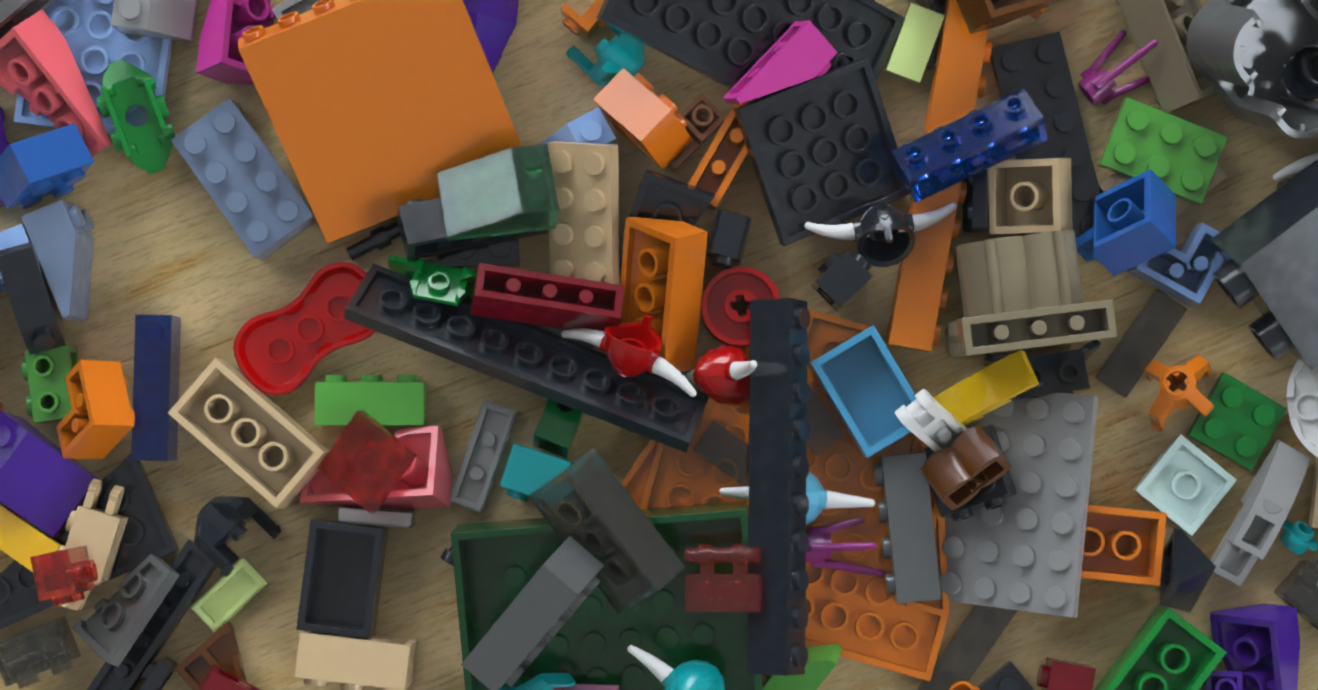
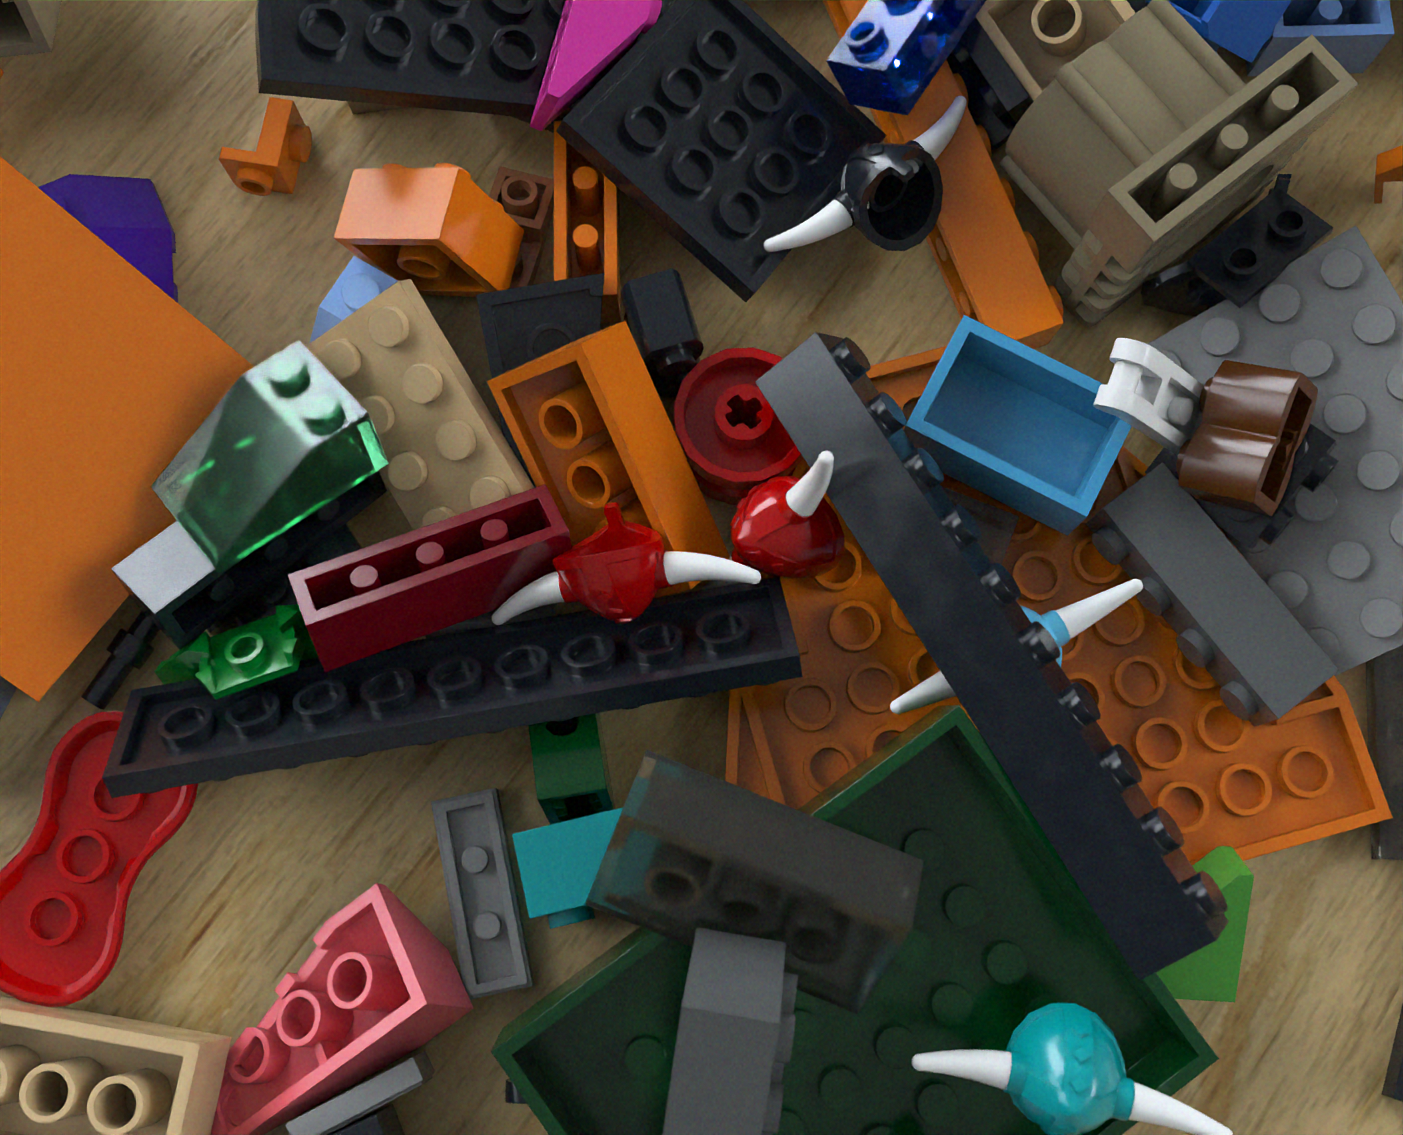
camera: 35 degrees left, 10 degrees down
(366, 461) = (286, 1016): clear red plate -> none
(386, 402) = (246, 914): bright green brick -> none
(612, 58) = (344, 147): teal piece -> none
(723, 591) = (1010, 864): clear red plate -> none
(725, 452) = (864, 652): clear smoke tile -> none
(821, 548) = (1109, 700): magenta plant -> none
(841, 278) = (867, 291): black brick -> none
(988, 388) = (1199, 304): yellow slope -> none
(1140, 343) = (1337, 167): clear smoke tile -> none

